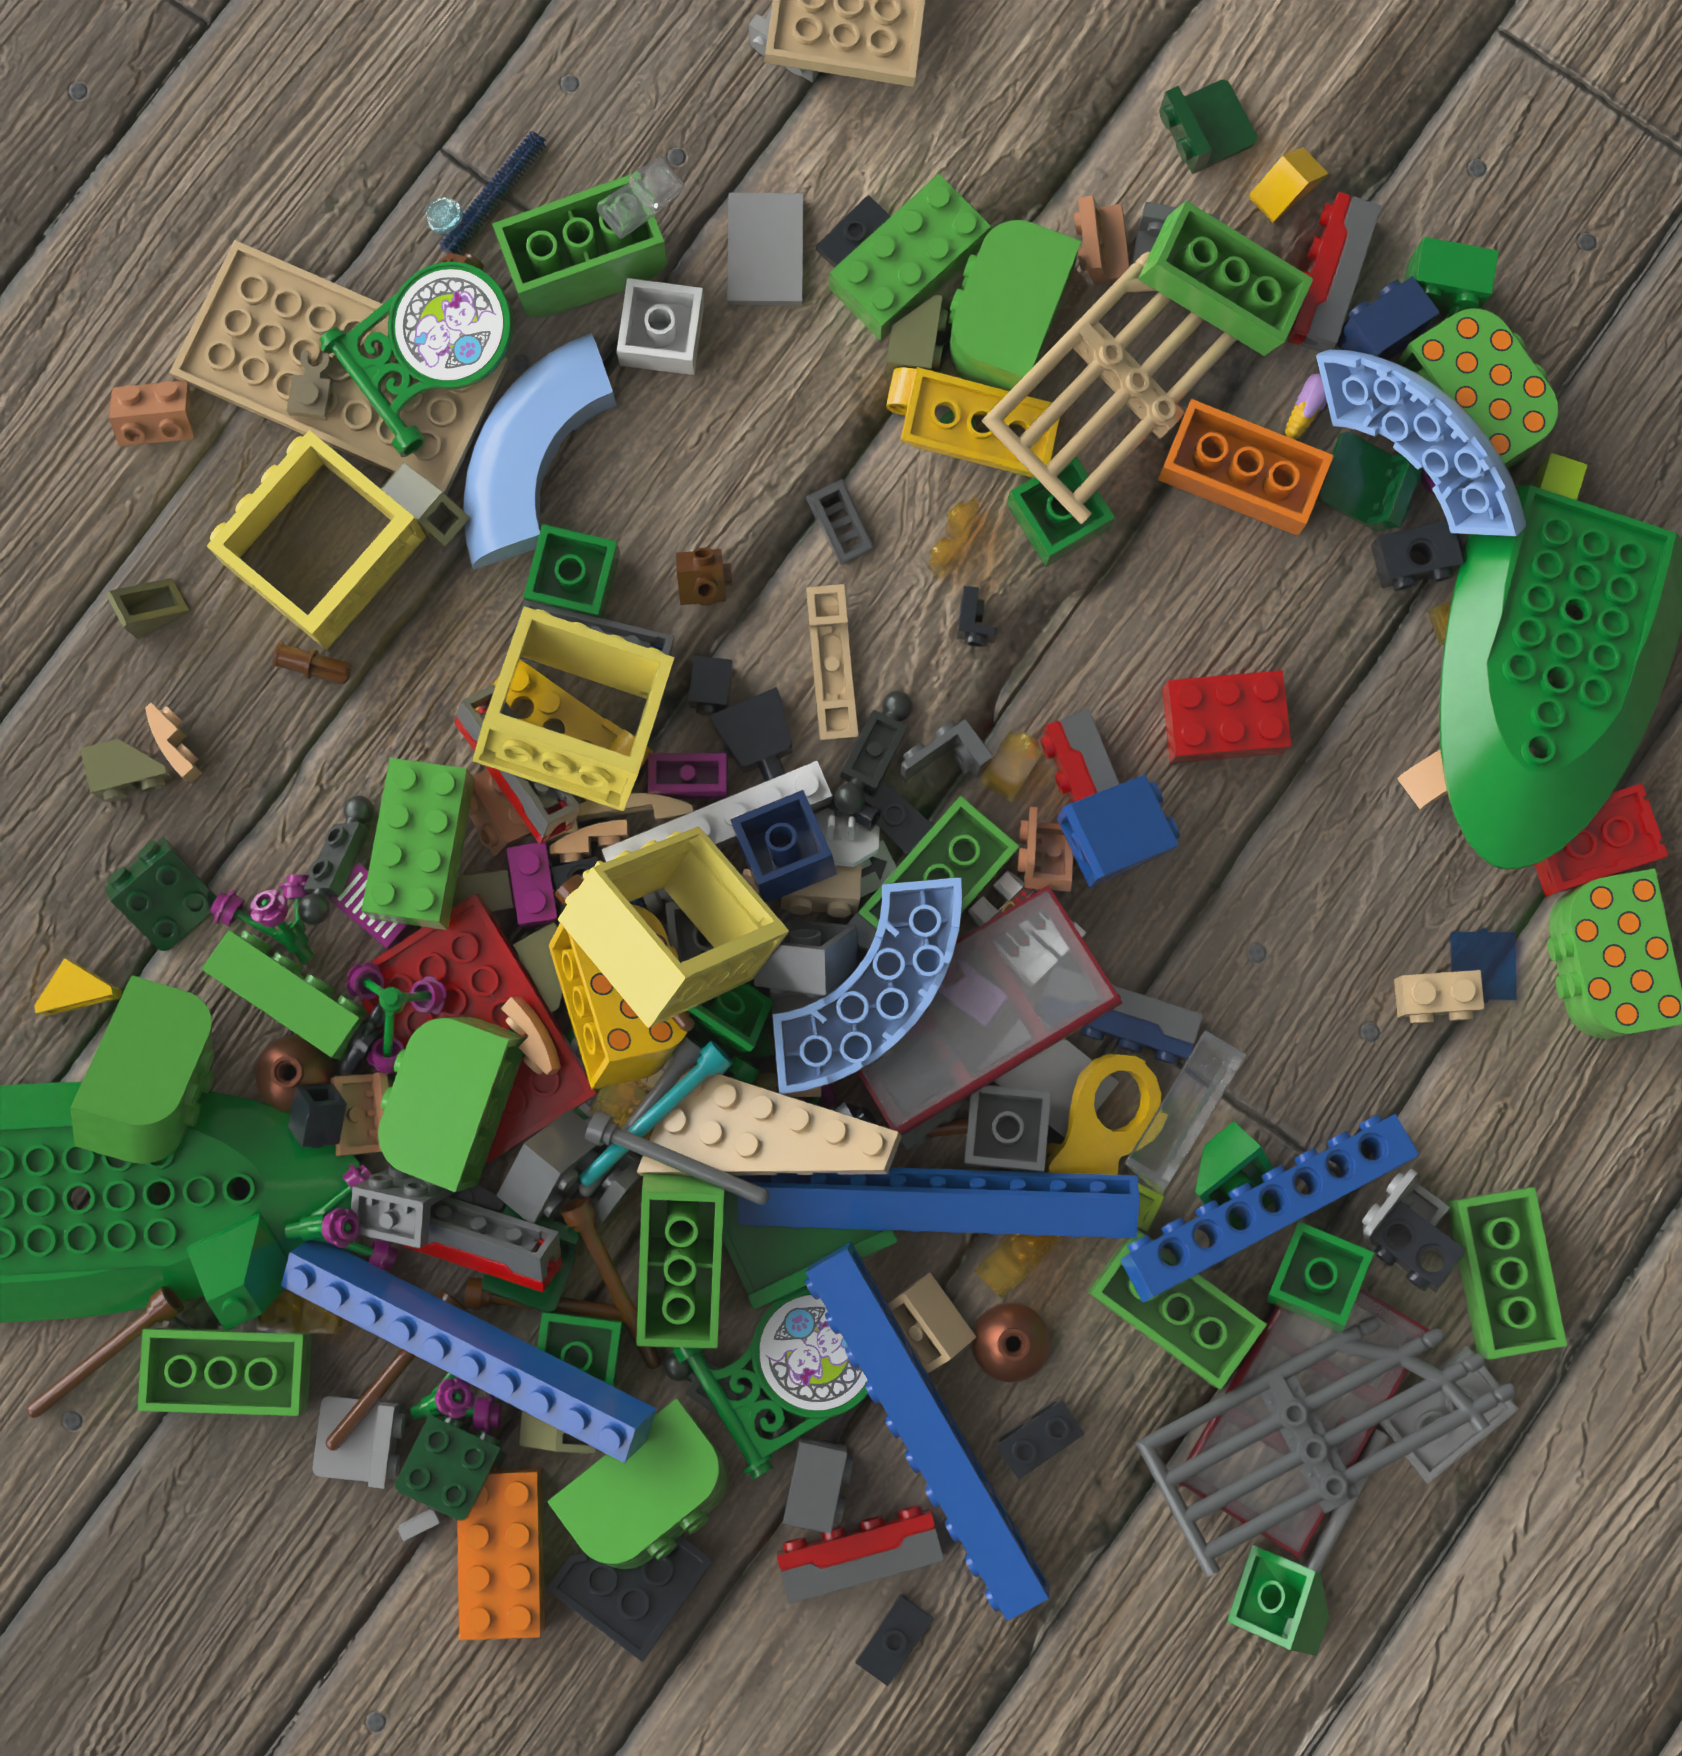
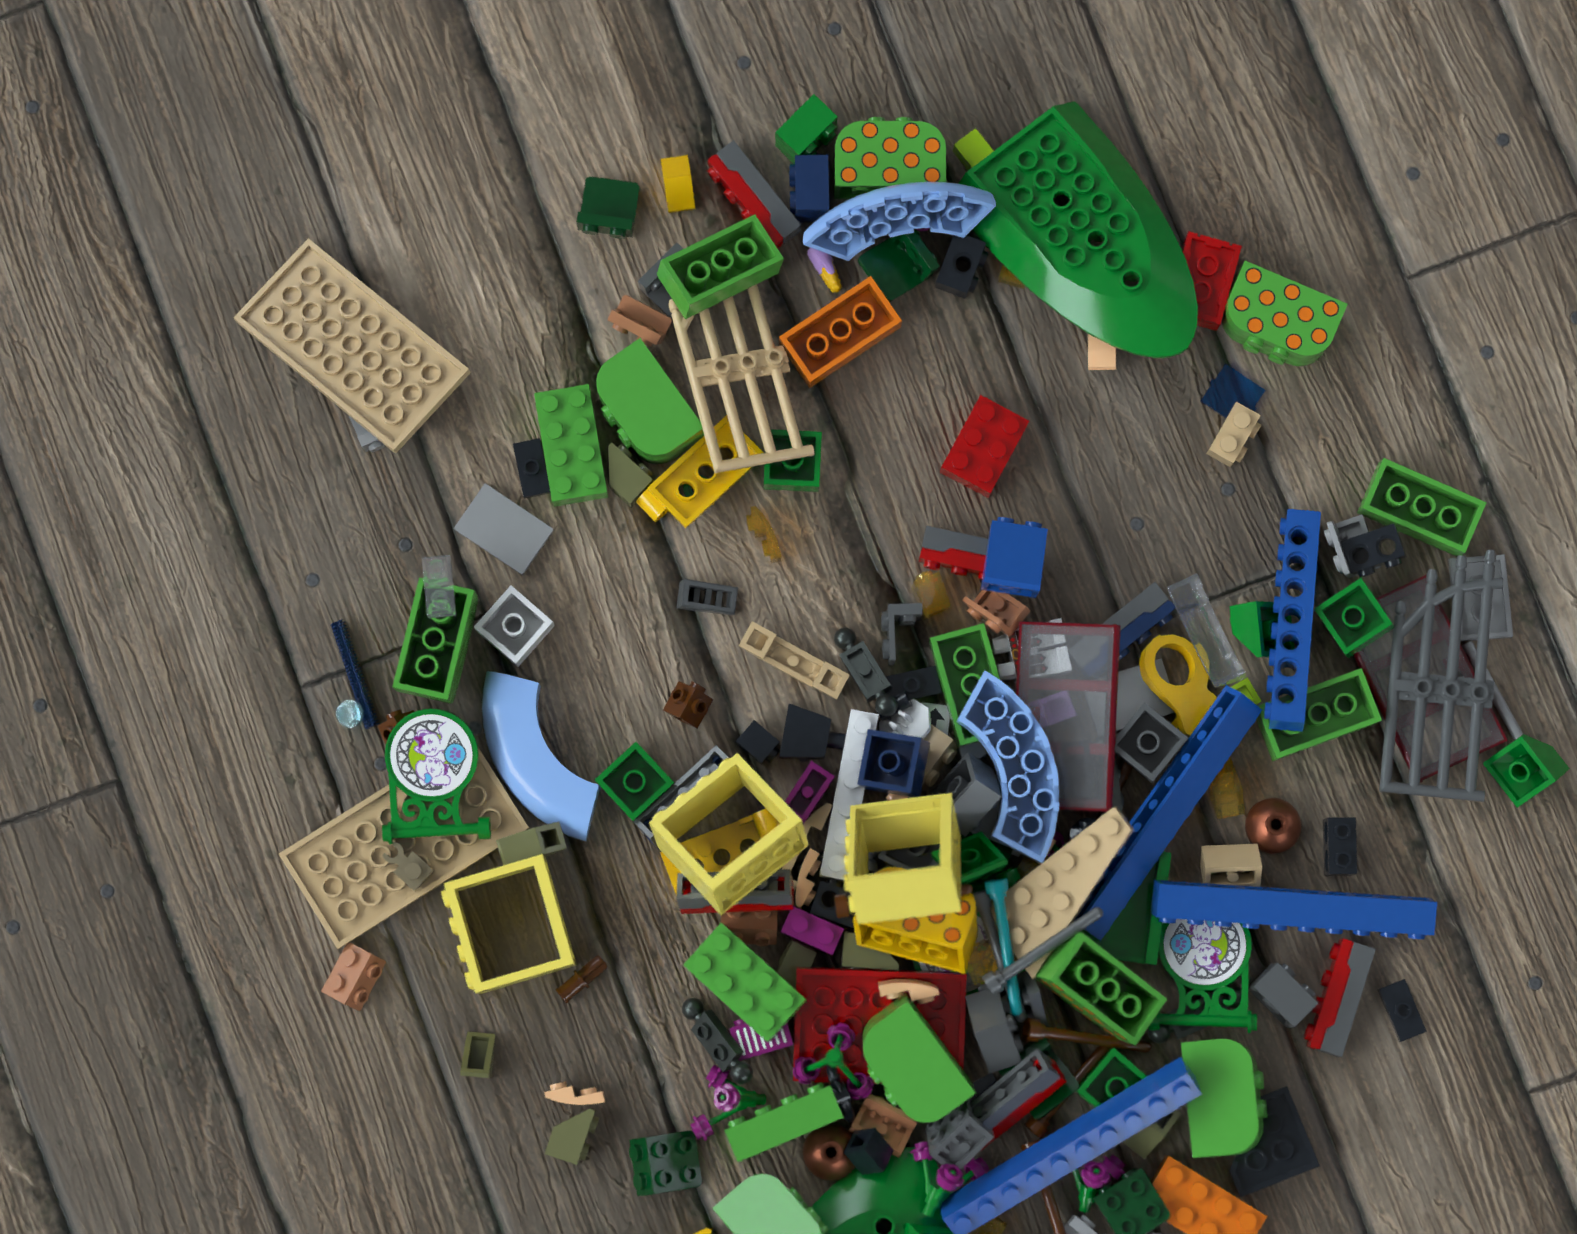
camera: 55 degrees left, 0 degrees up
(970, 612) = (817, 556): black bracket -> none

